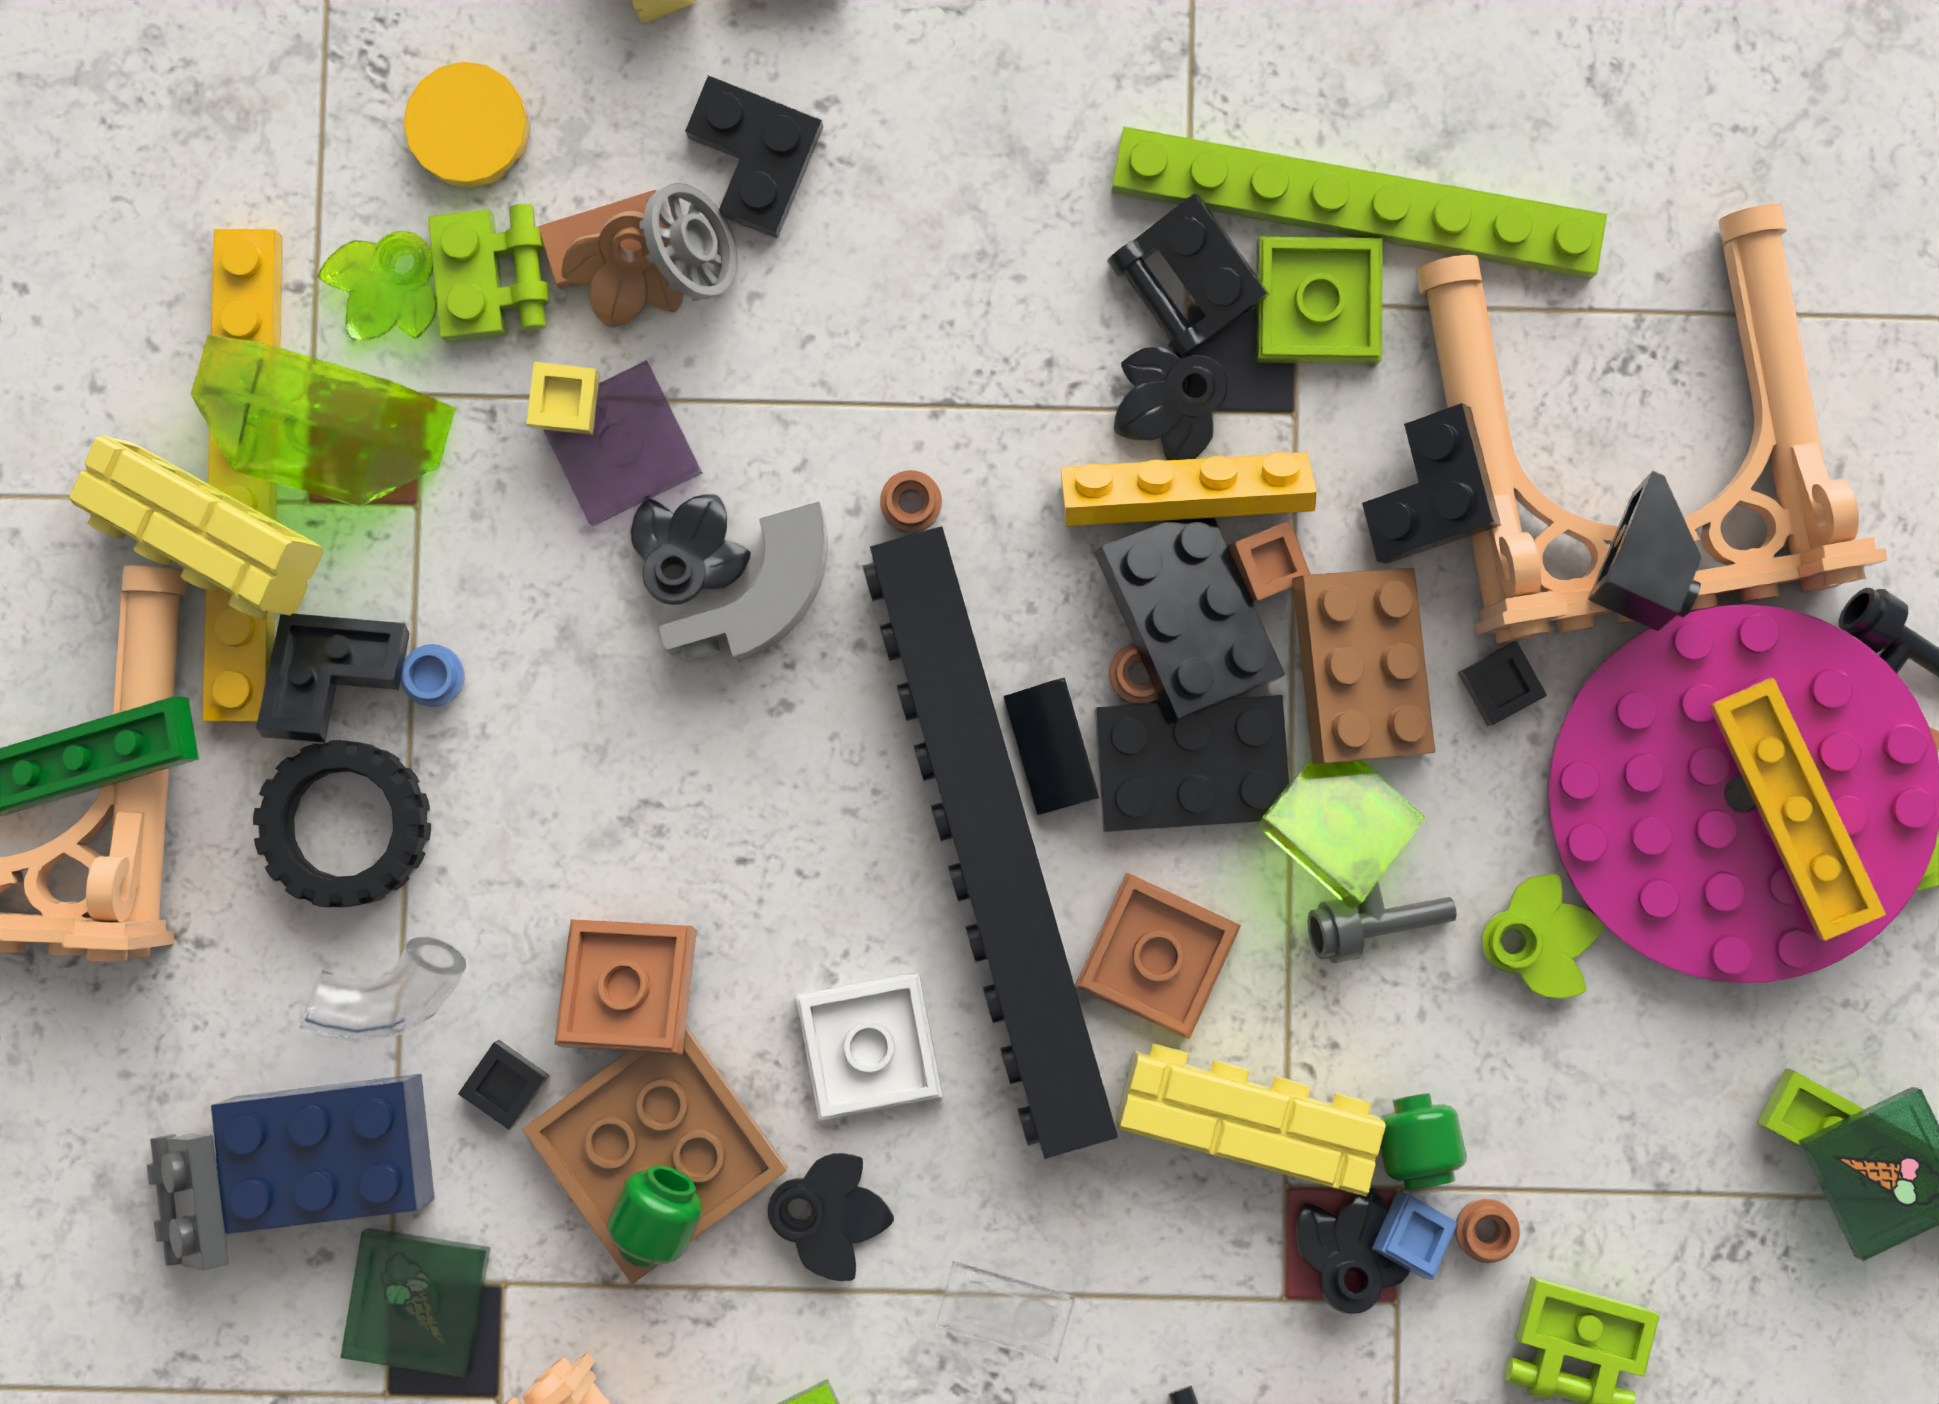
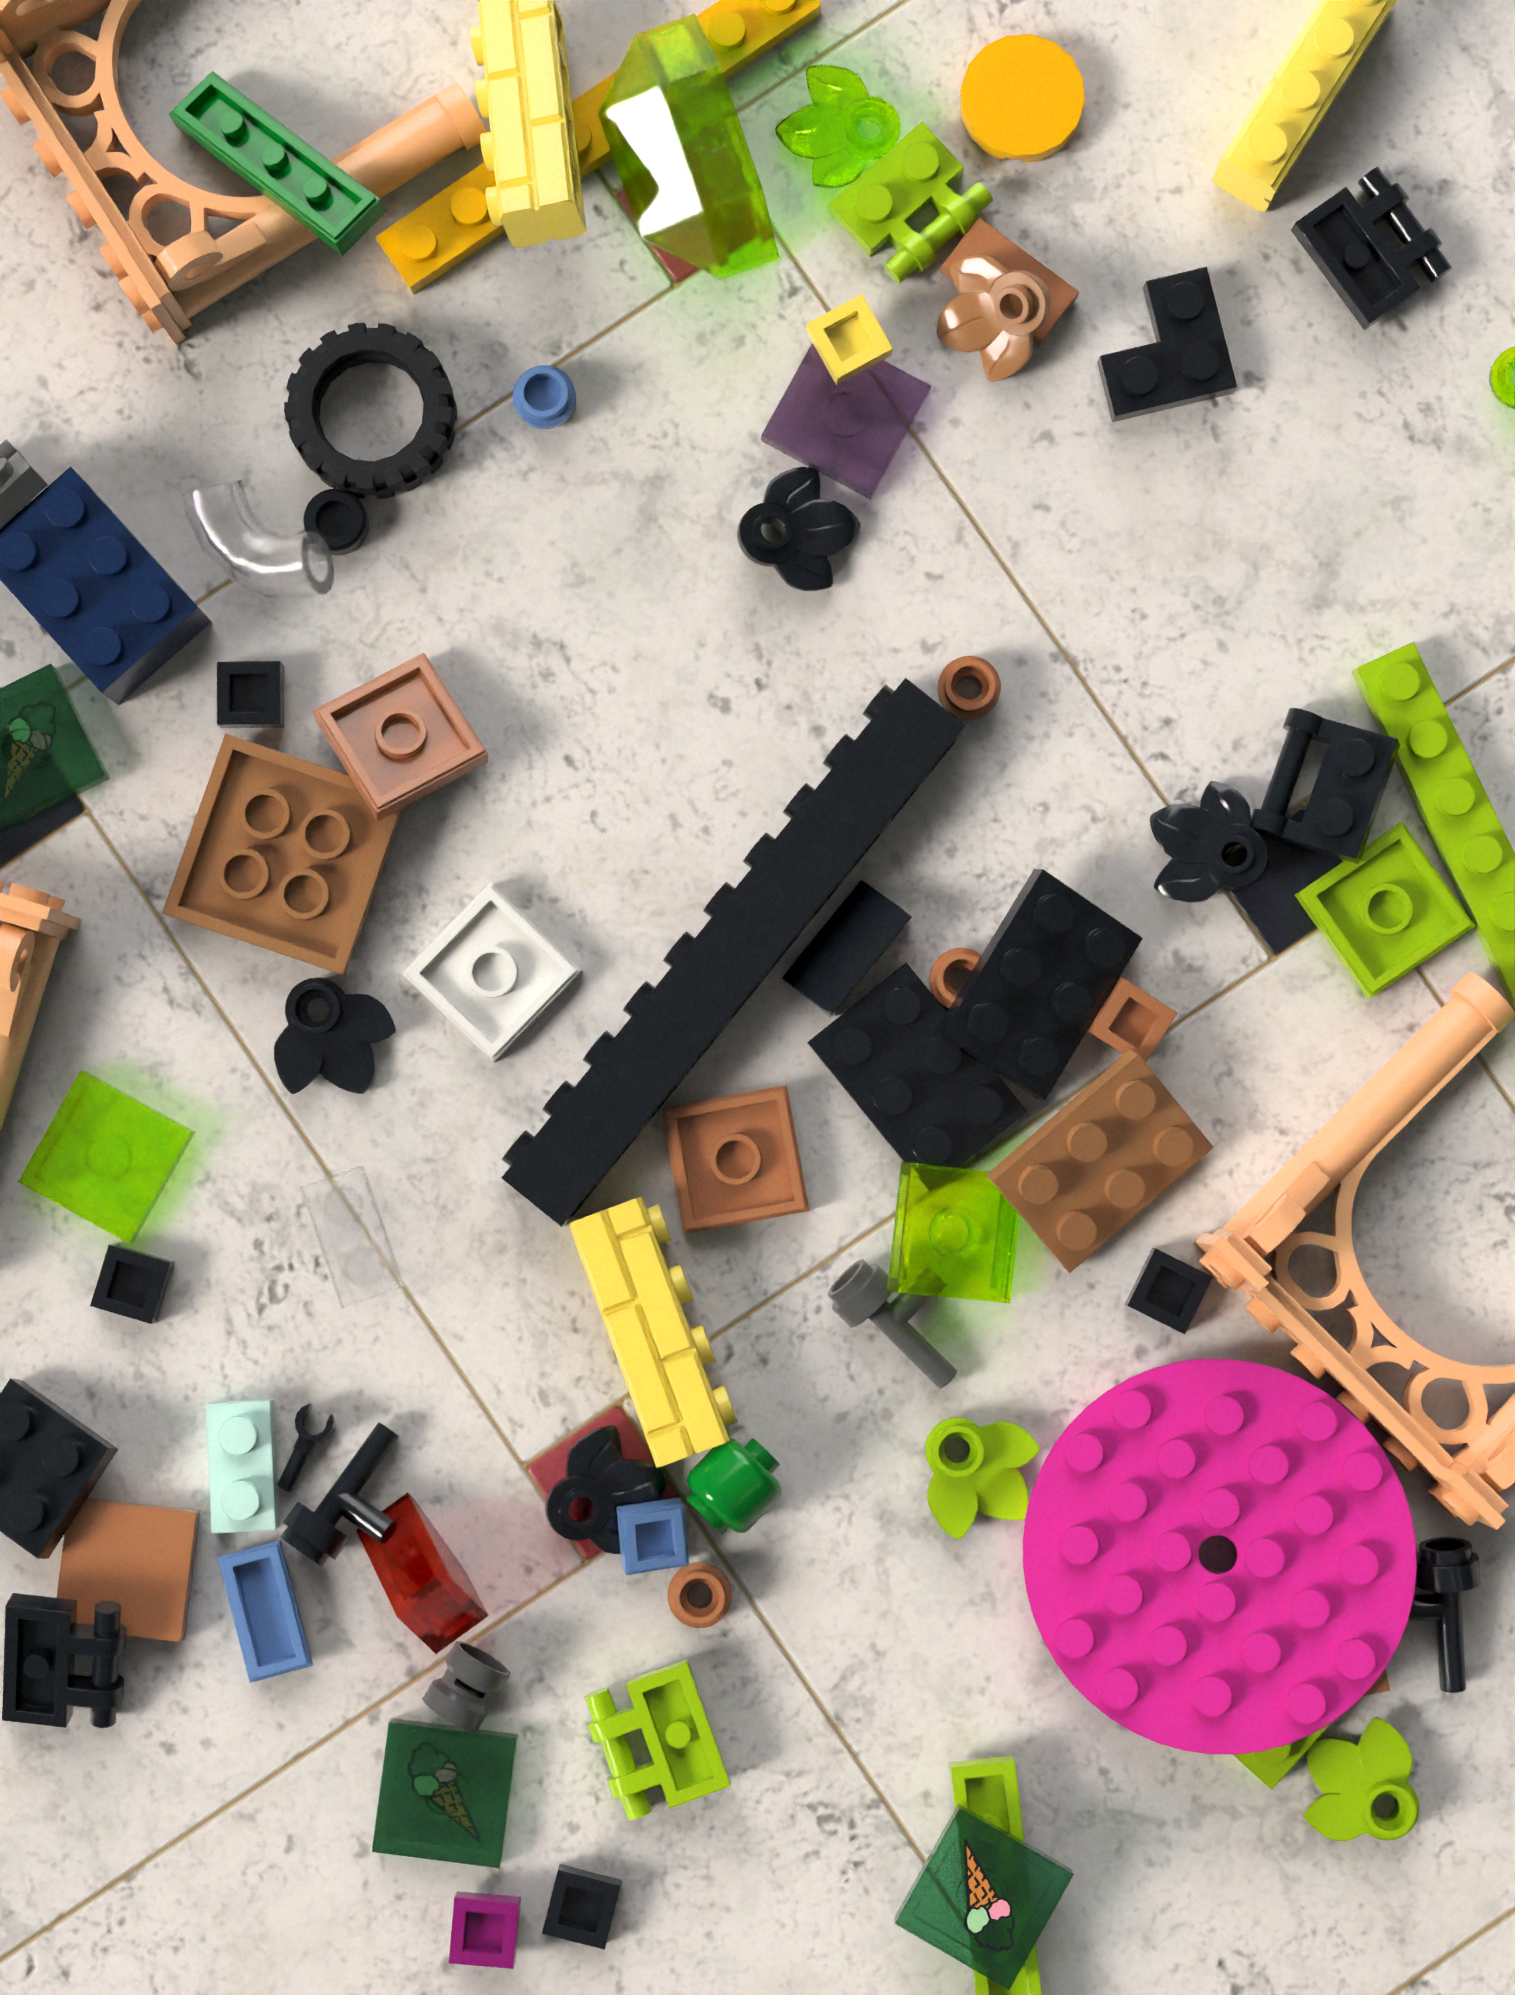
camera: 60 degrees right, 0 degrees up
(313, 658) = (490, 291): black plate -> none
(412, 913) = (338, 520): none -> black tile
(655, 1216) = (231, 890): green head -> none
(689, 241) = (1054, 350): light grey wheel -> none
(774, 603) = (811, 633): light grey arch -> none
(1187, 489) = (1143, 910): yellow plate -> none
(1451, 495) = (1292, 1132): black plate -> none
(1650, 559) = (1356, 1334): black slope -> none
(1797, 809) = (1233, 1602): yellow plate -> none

